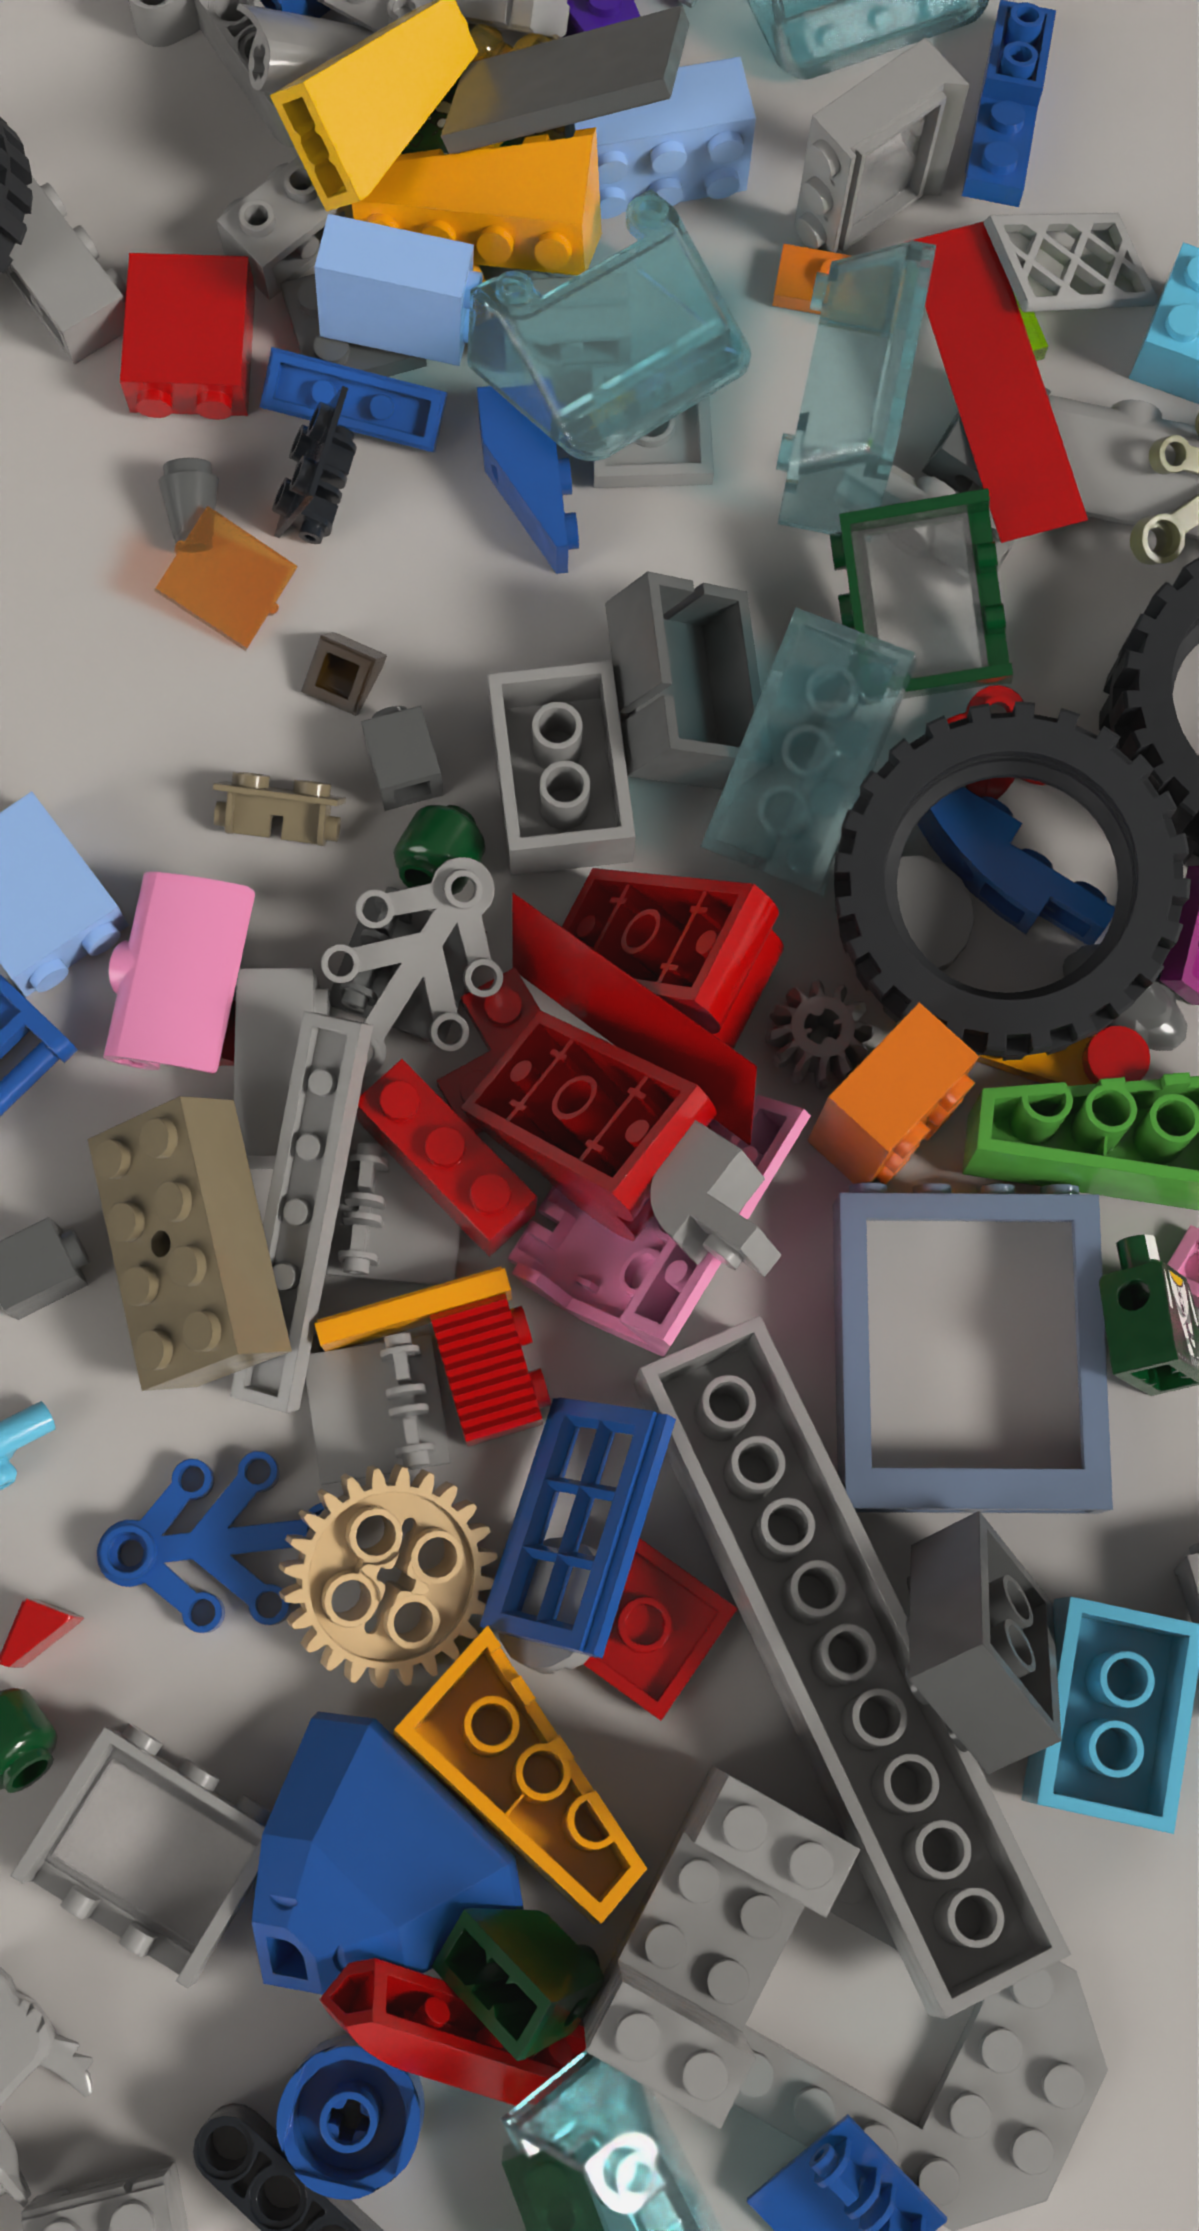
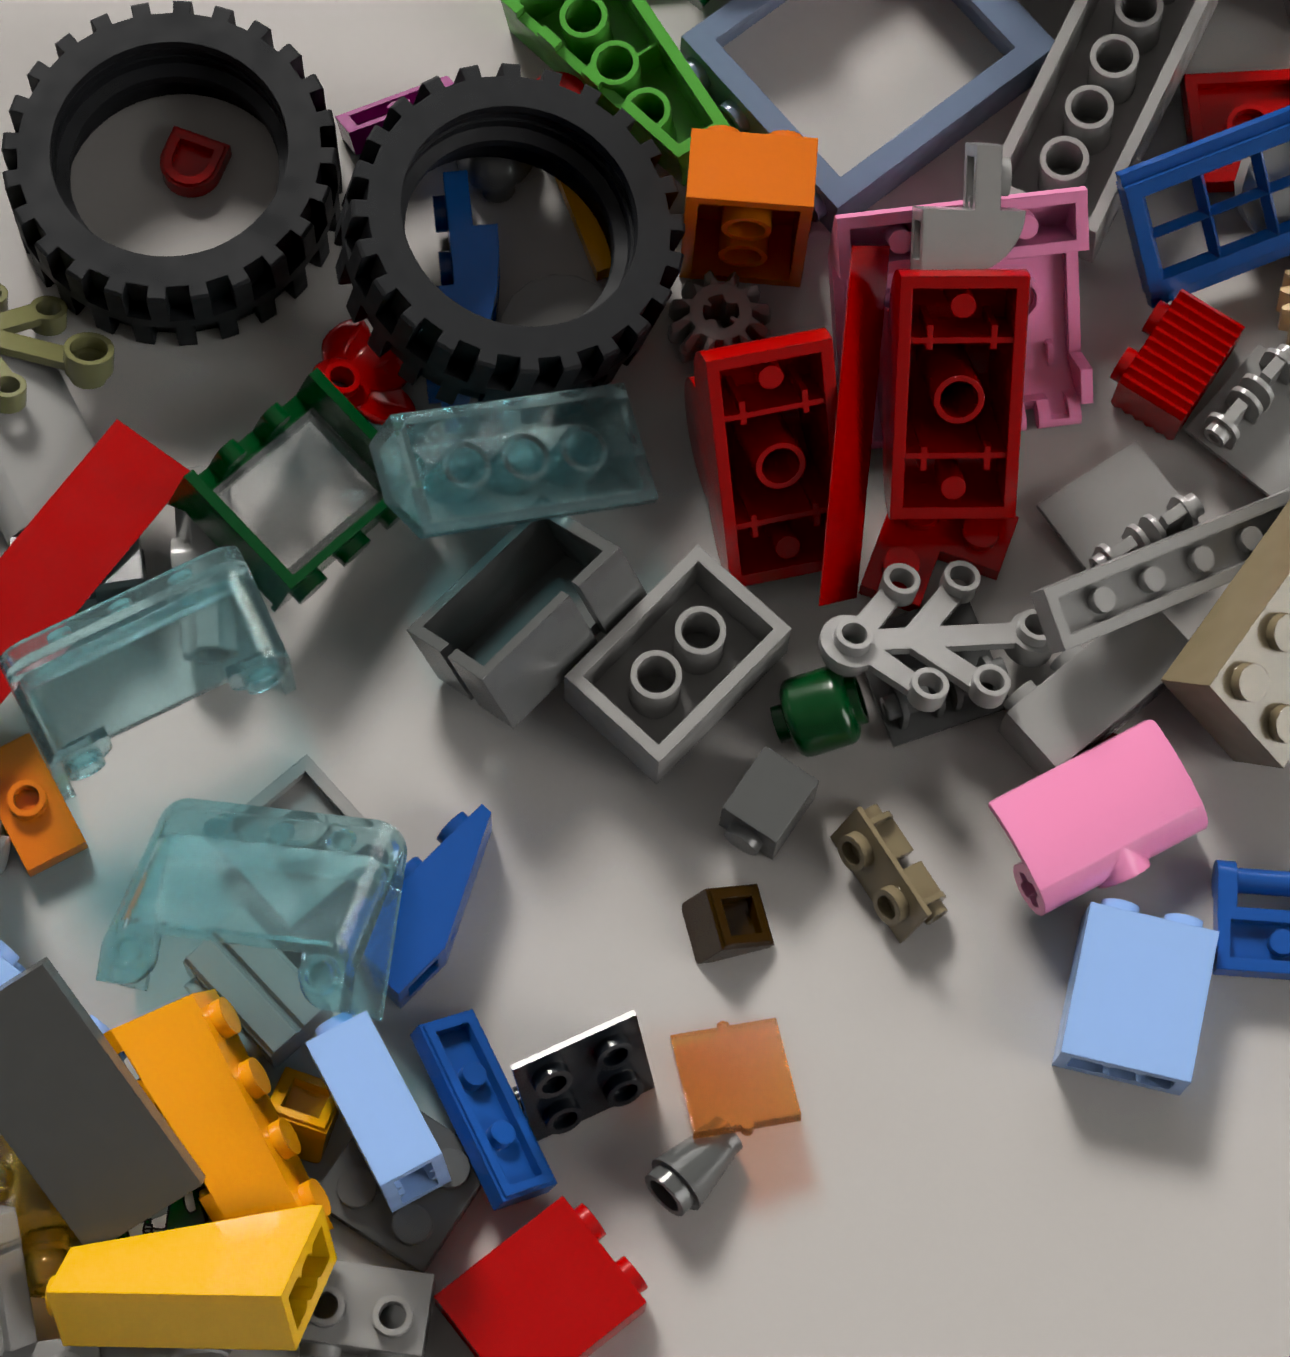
camera: 130 degrees left, 5 degrees down
(408, 1310) = (1181, 445): light orange tile -> none
(446, 1157) = (1059, 493): red brick -> none

